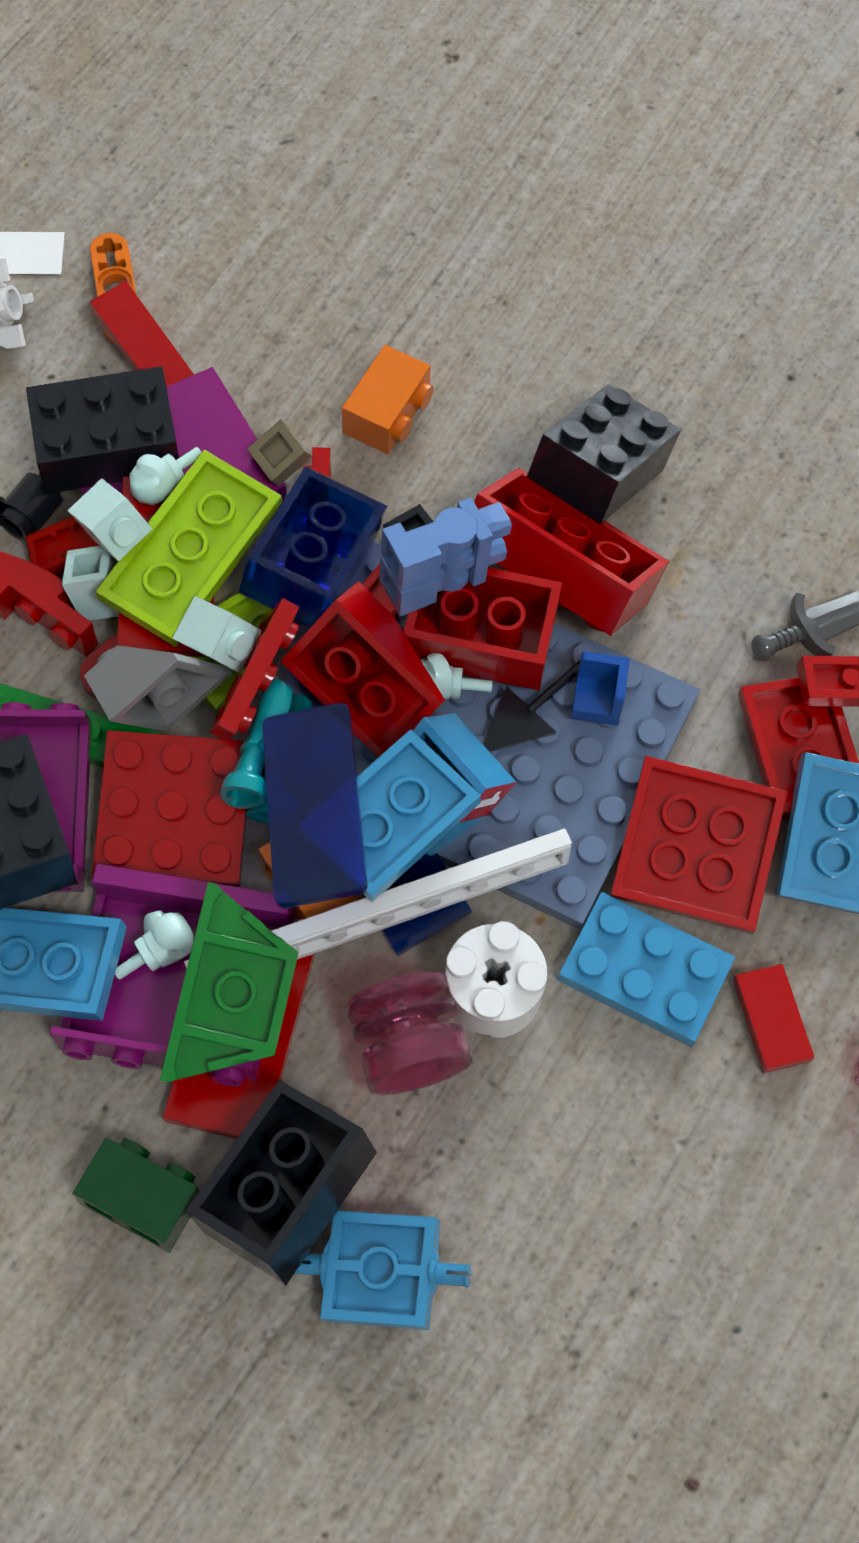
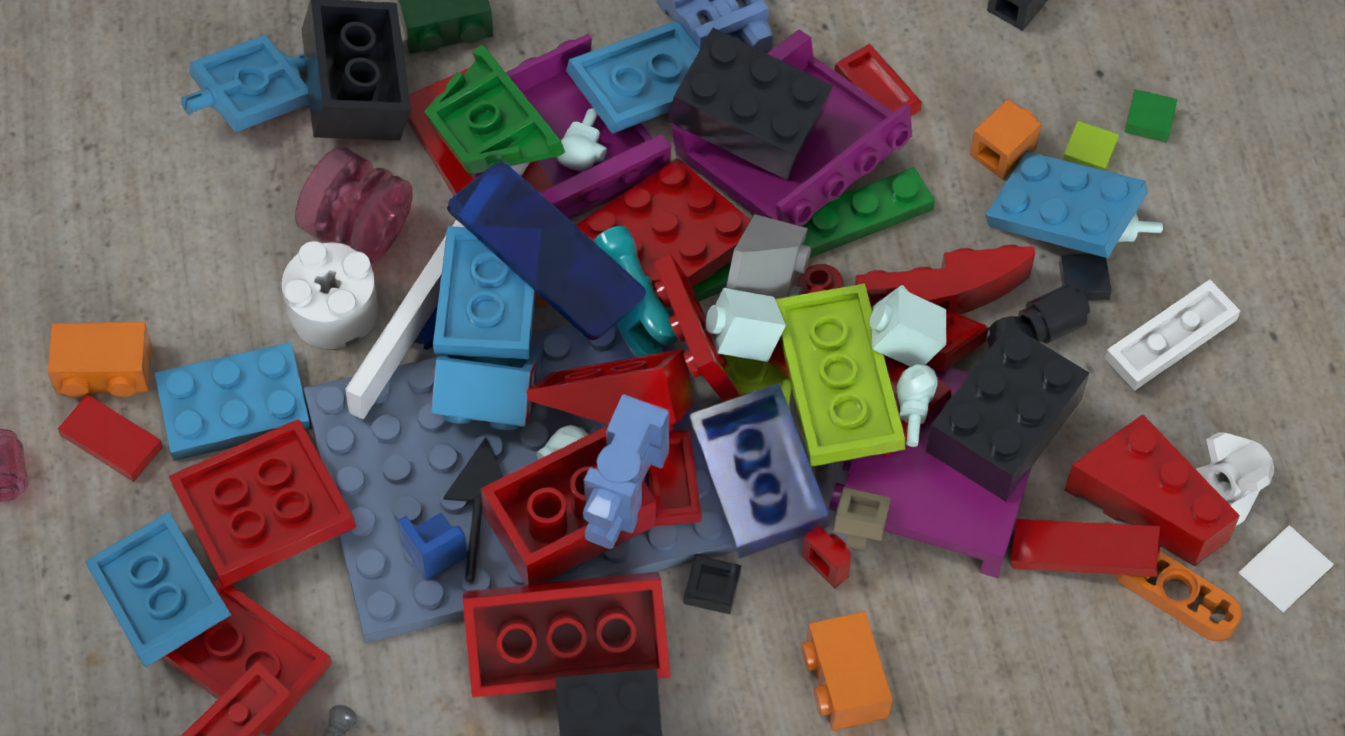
camera: 140 degrees right, 5 degrees down
(52, 331) = (1153, 484): none -> red wedge
(733, 1089) = (100, 358): none -> orange brick

